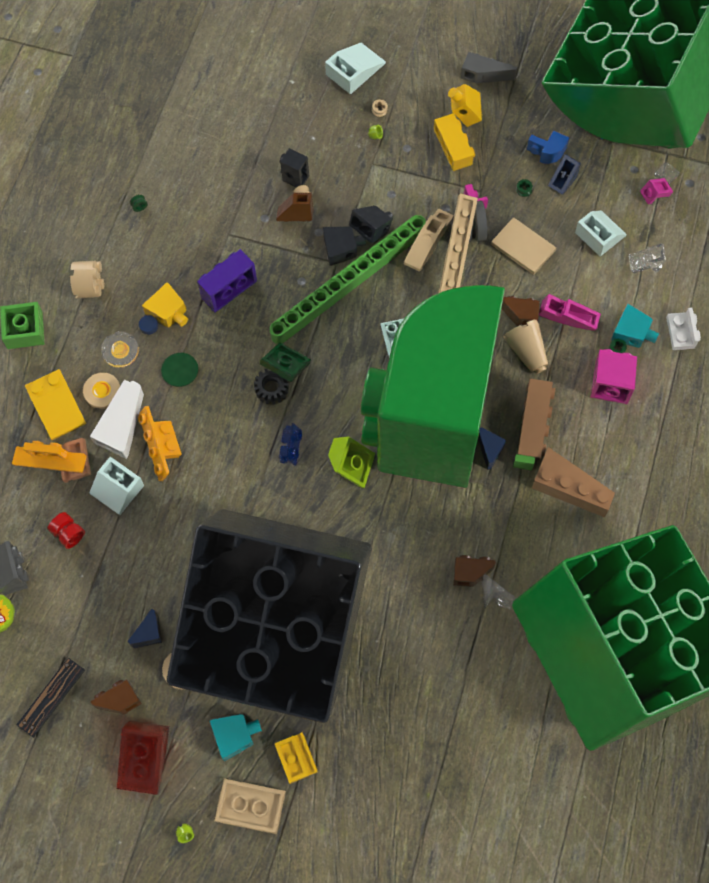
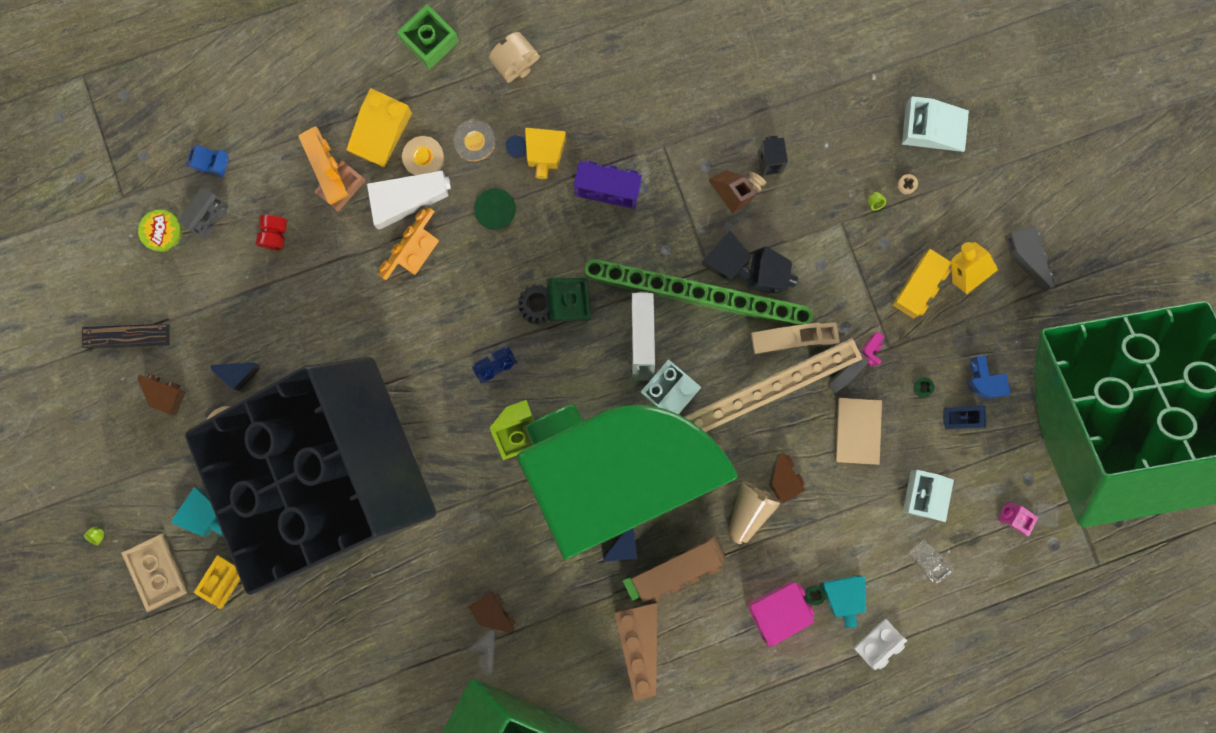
camera: 50 degrees right, 15 degrees up
(115, 486) = (342, 242): light aqua slope -> none
(138, 203) = (630, 39): dark green bush -> none
(142, 757) = (130, 452): clear red slope -> none
(352, 332) = (643, 336): none -> white slope
(569, 313) = (816, 525): dark pink slope -> none

